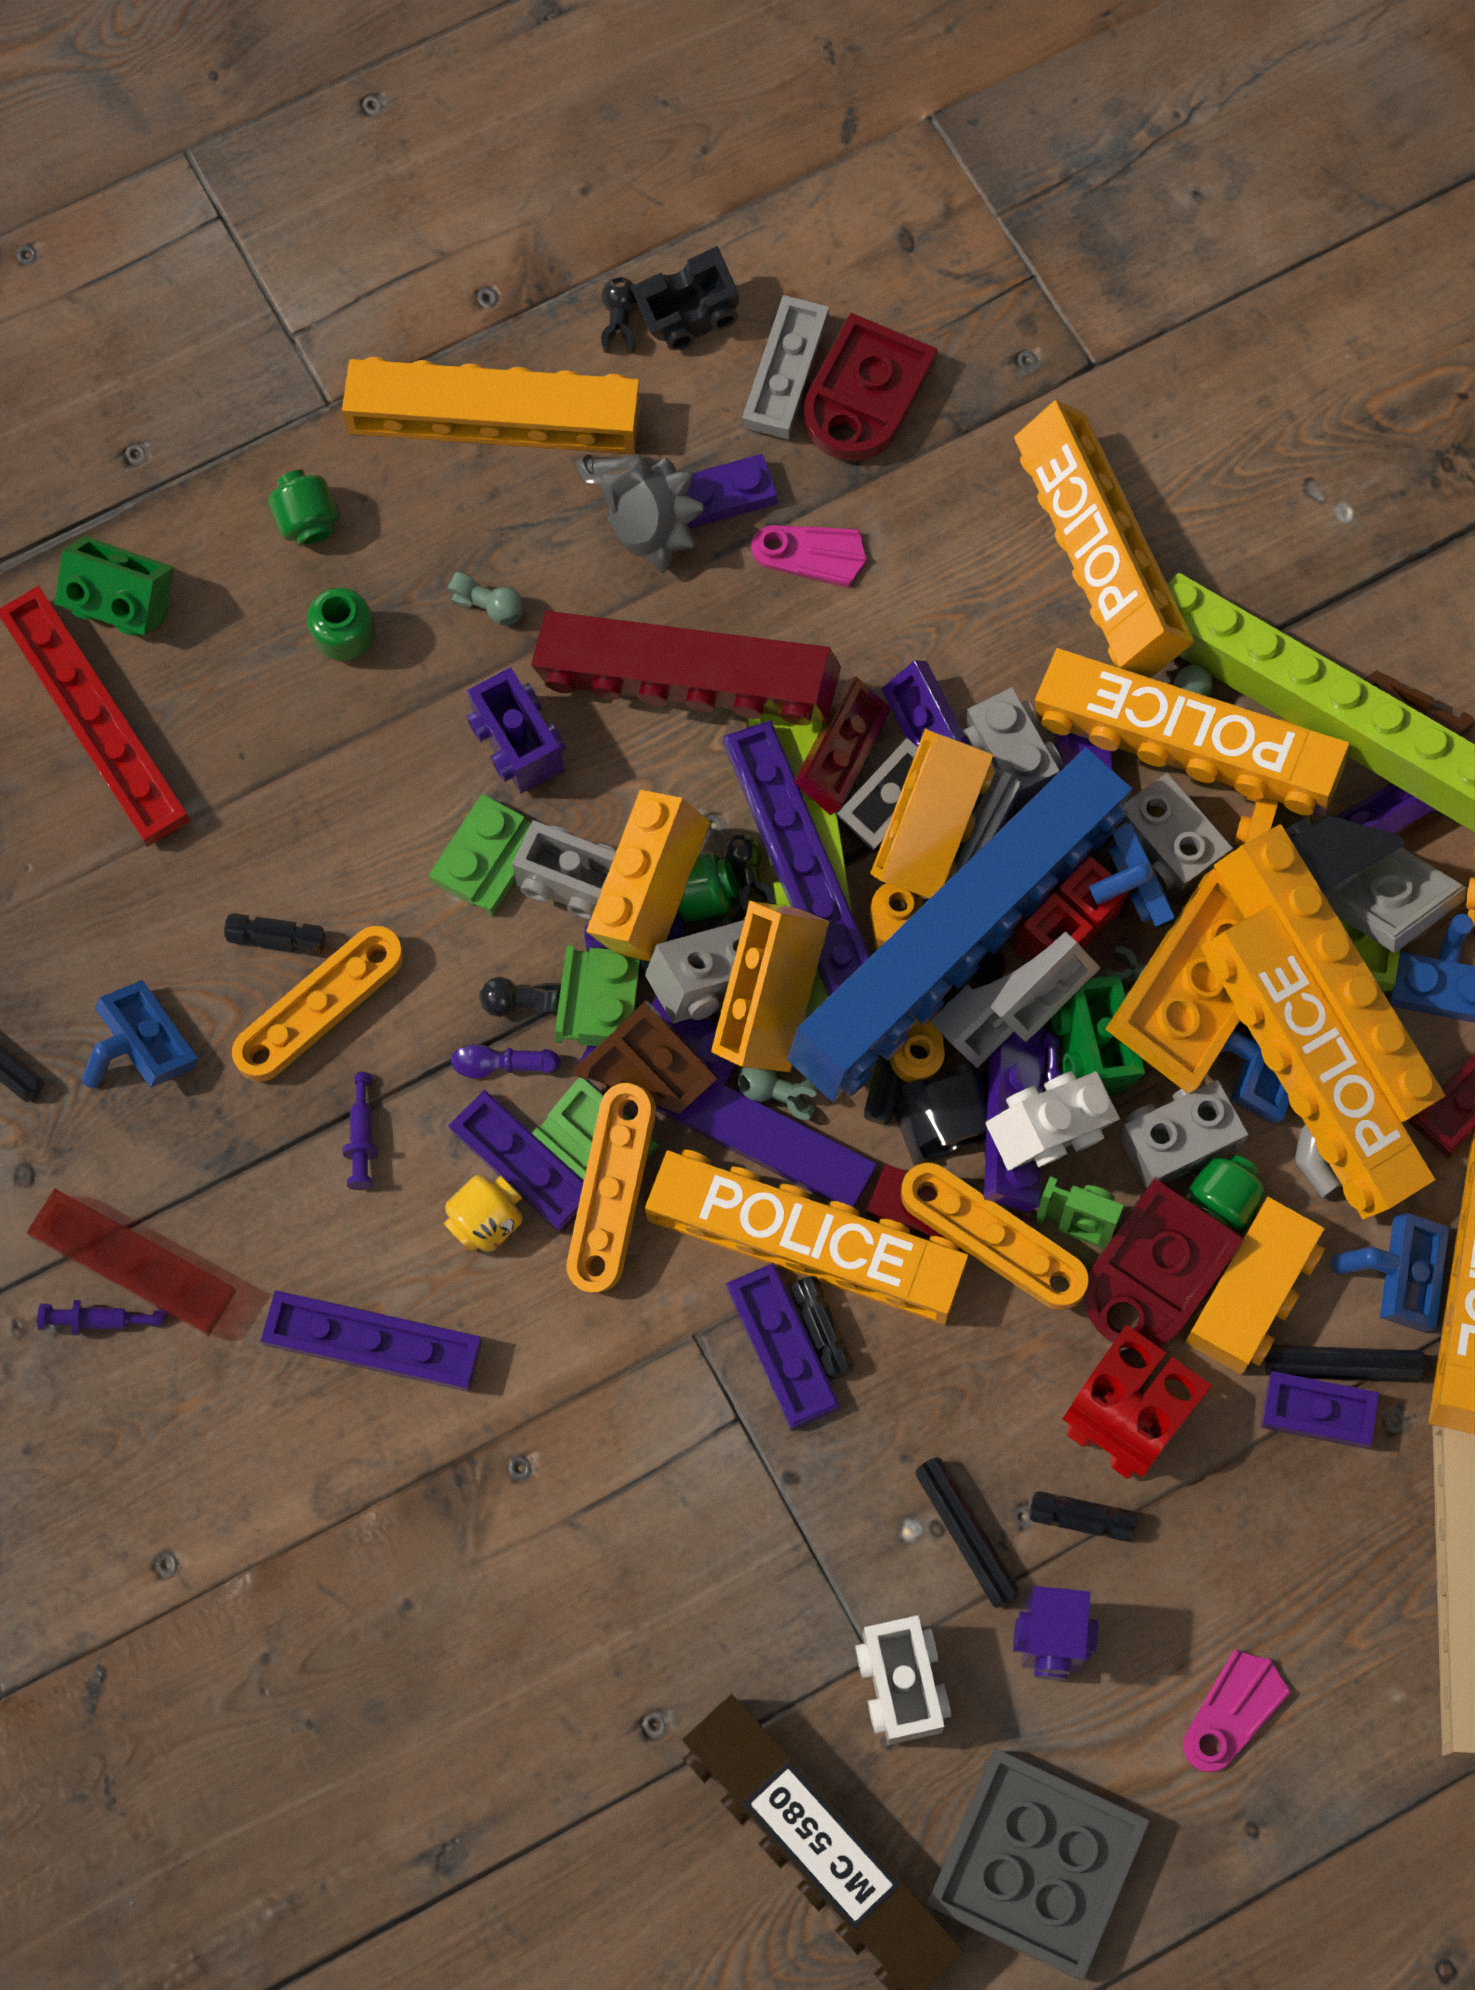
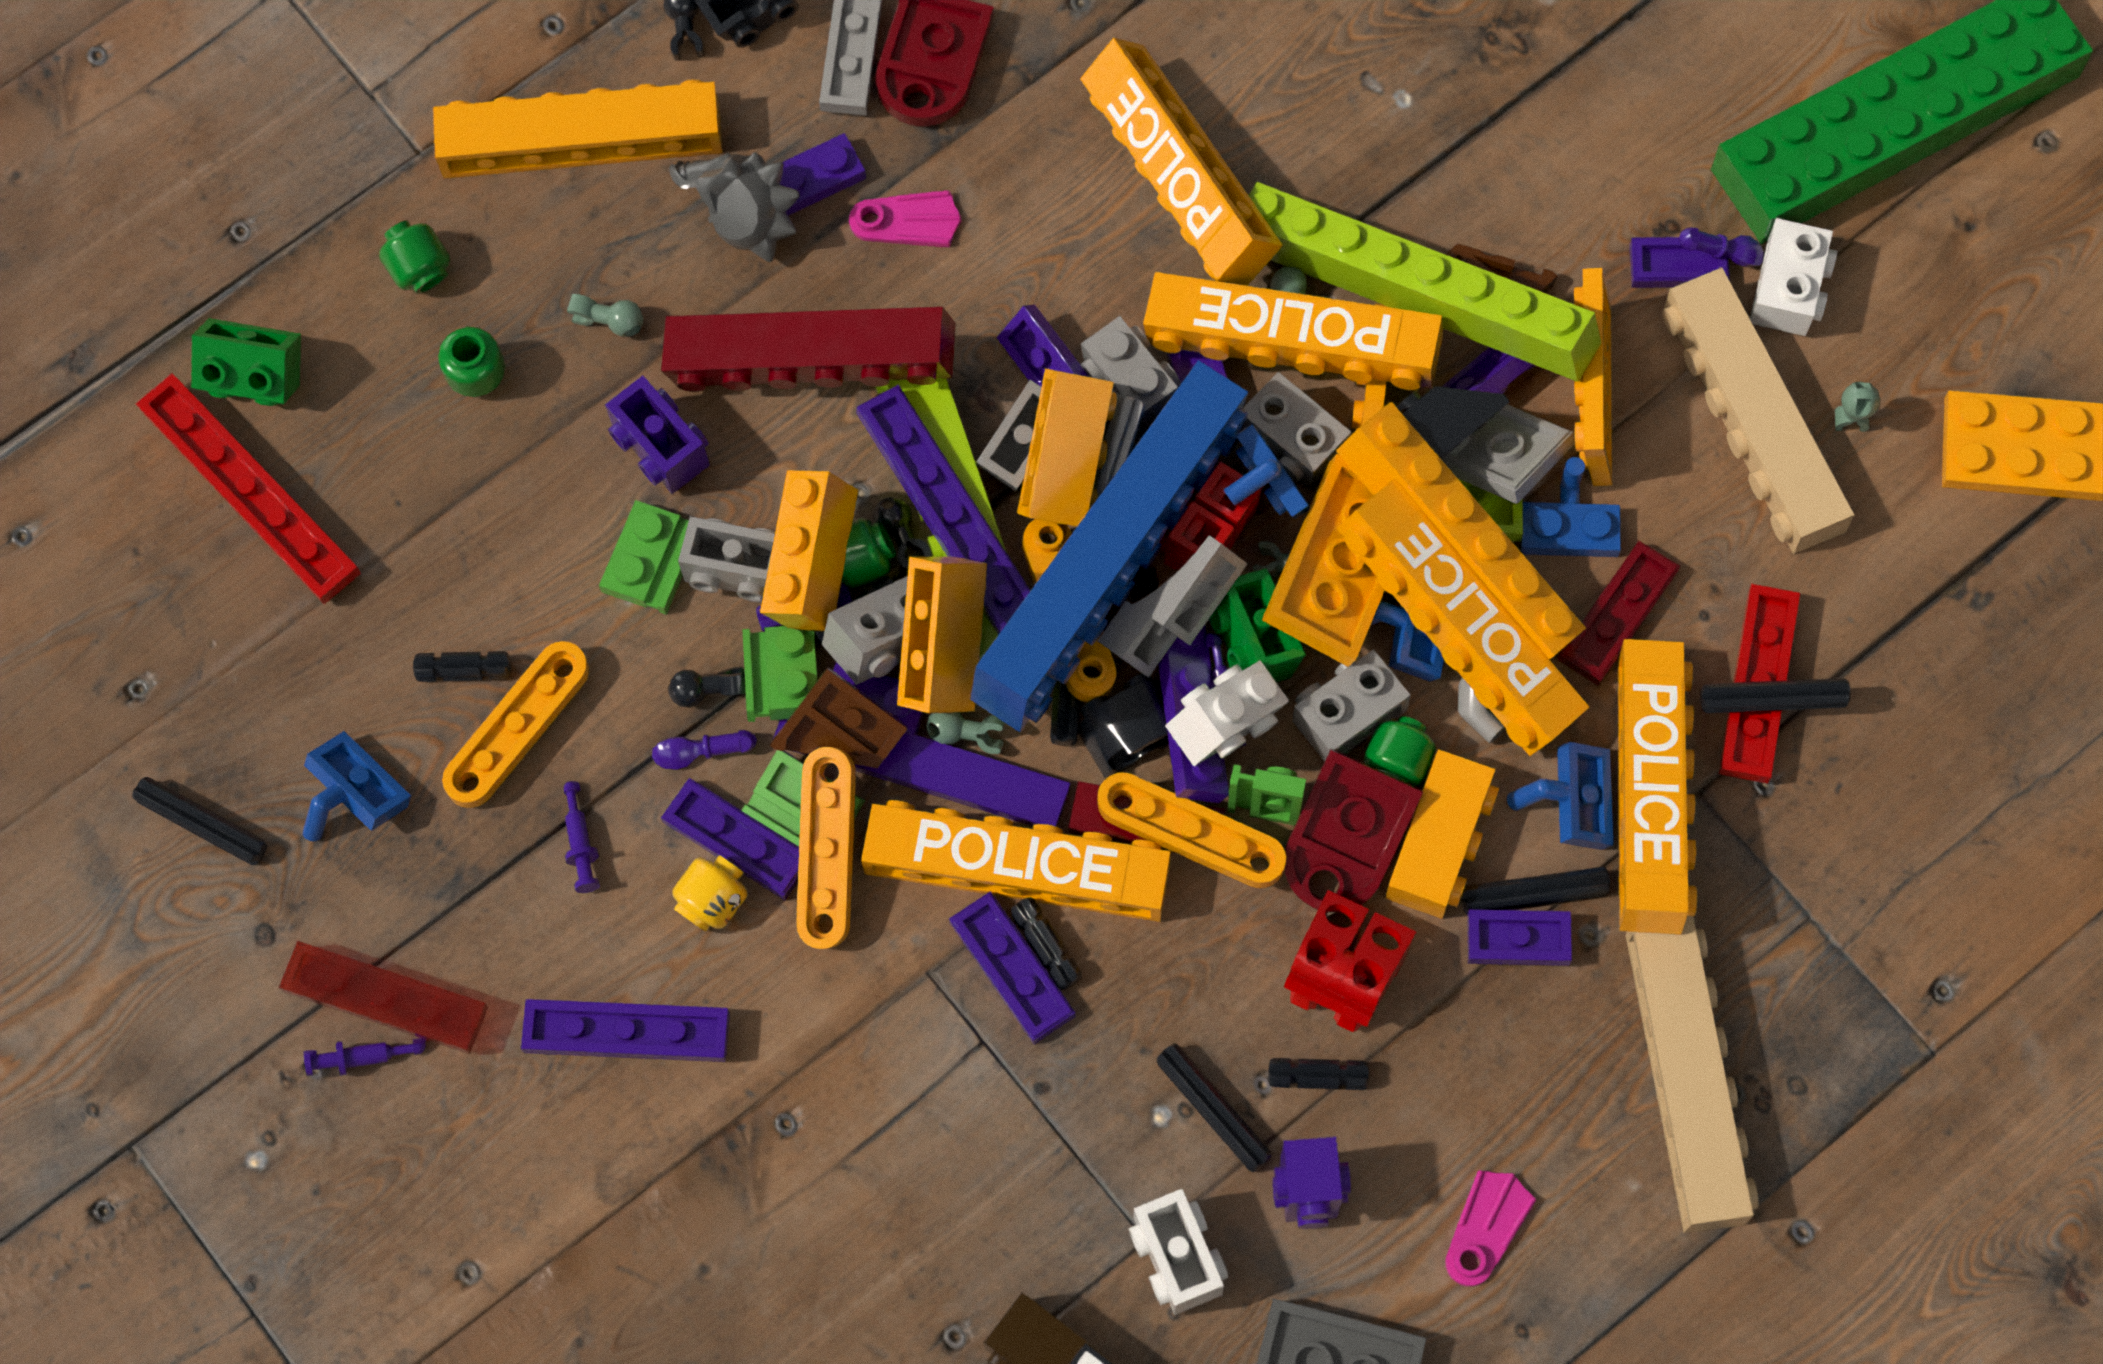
camera: 10 degrees left, 0 degrees up
(842, 745) = (970, 397): dark red tile -> none

